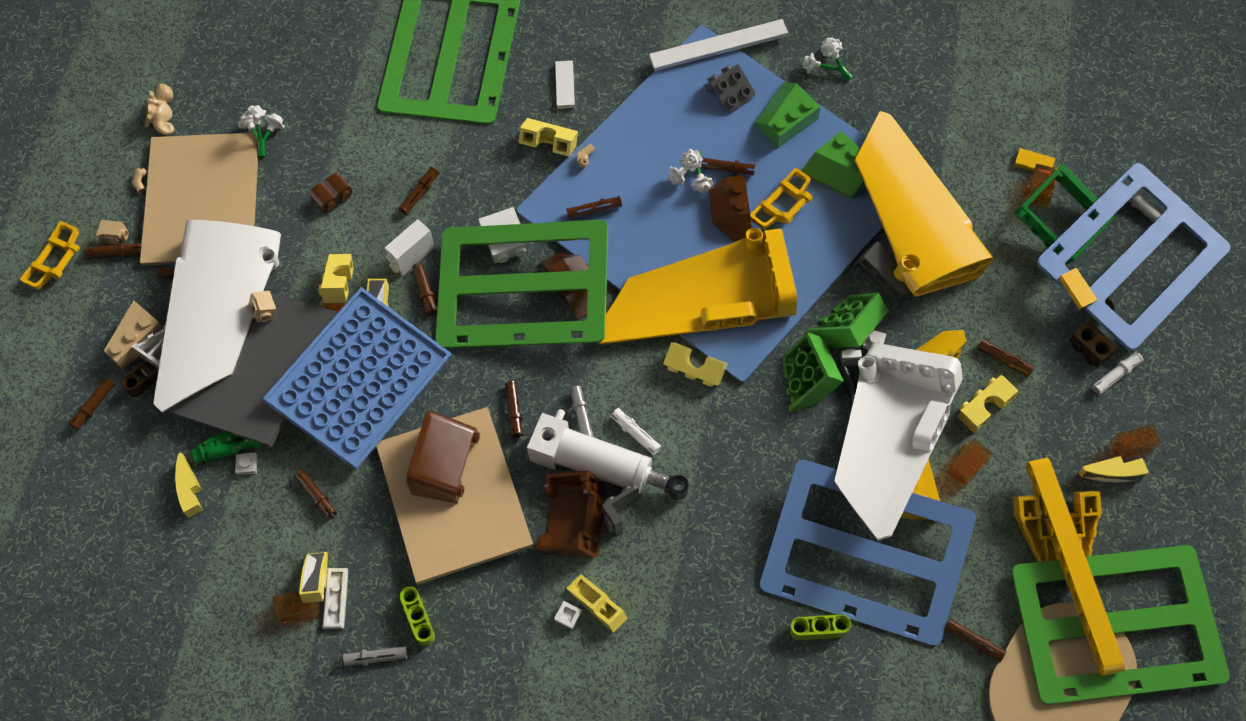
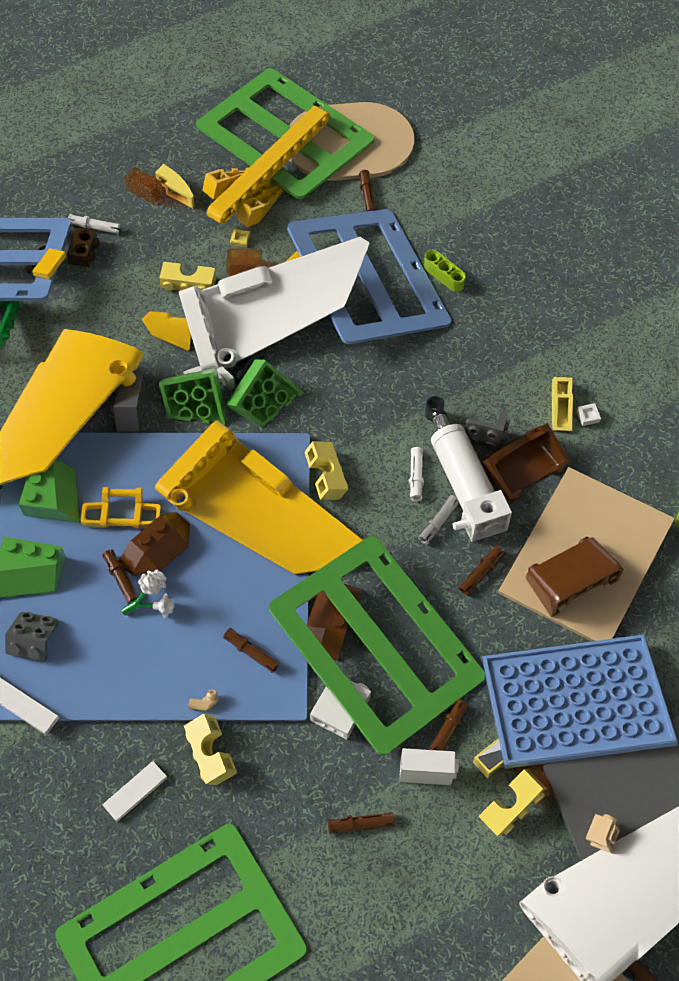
camera: 135 degrees left, 5 degrees down
(331, 192) = (434, 902): reddish brown brick -> none
(1006, 485) = (240, 238): none -> light yellow tile
(1012, 361) = (138, 290): reddish brown pin -> none

